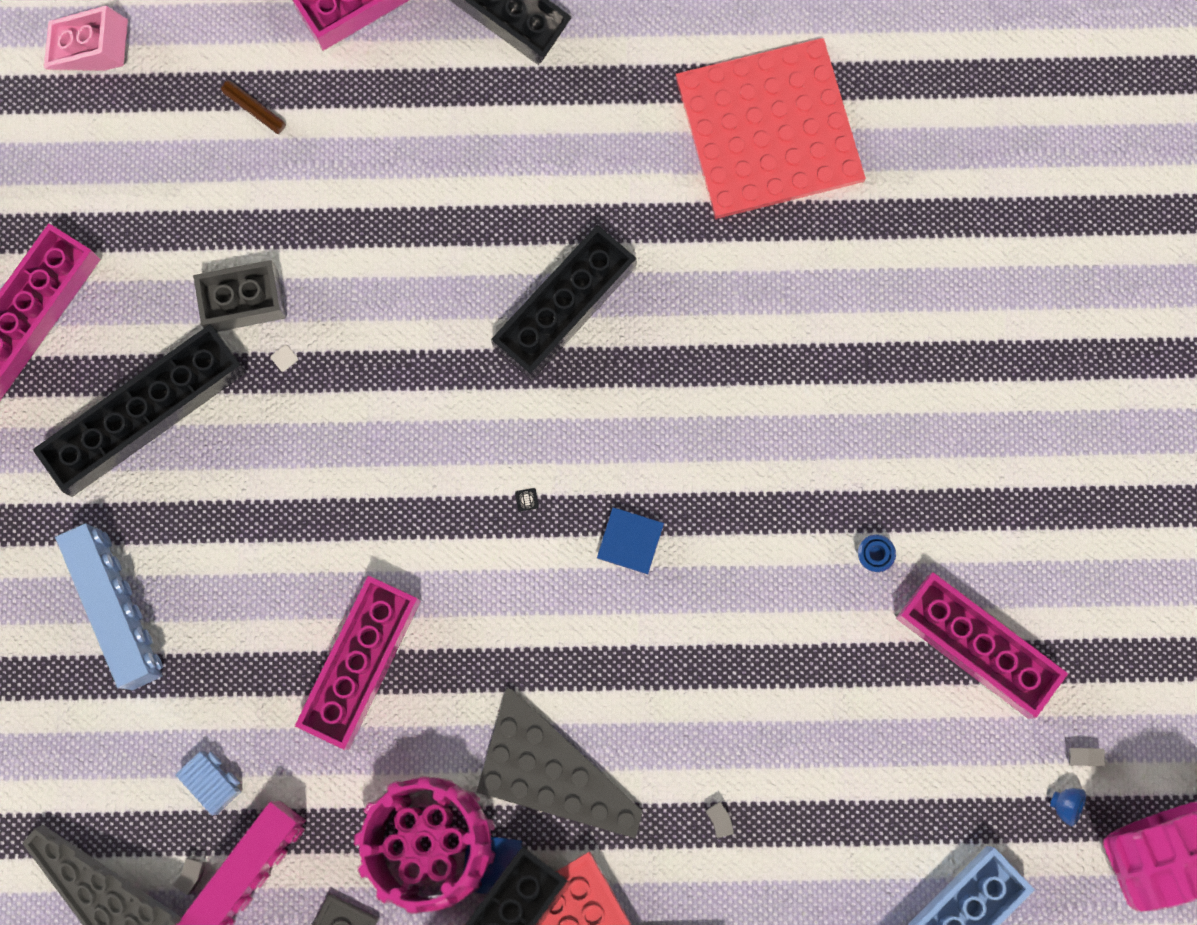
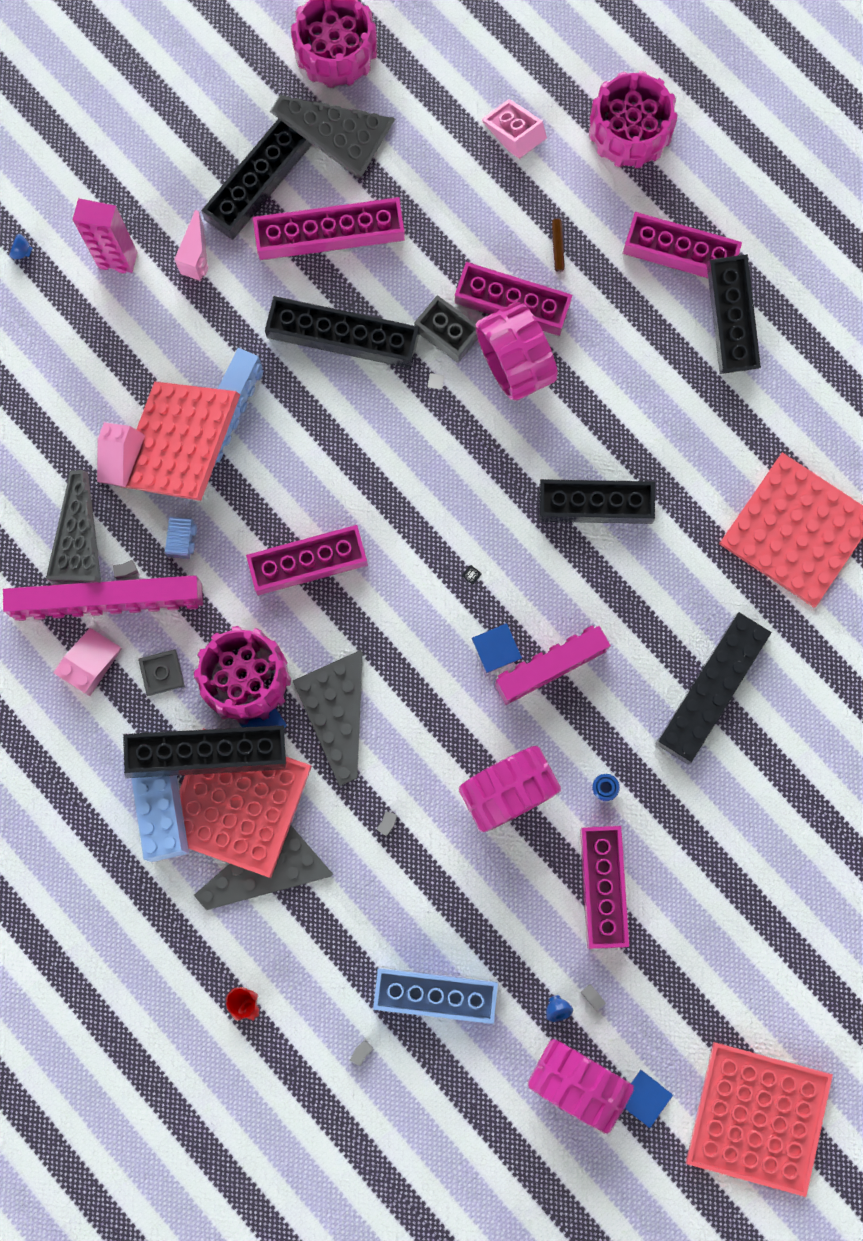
camera: 50 degrees right, 0 degrees up
(51, 773) = (117, 453): none -> bright pink slope
(99, 692) = (181, 438): none -> coral plate
(269, 201) = (492, 291): none -> dark pink brick
(331, 243) = (516, 351): none -> dark pink wheel
(700, 499) = (552, 664): none -> dark pink brick
(801, 657) = (509, 788): none -> dark pink wheel
(864, 354) = (713, 688): none -> black brick

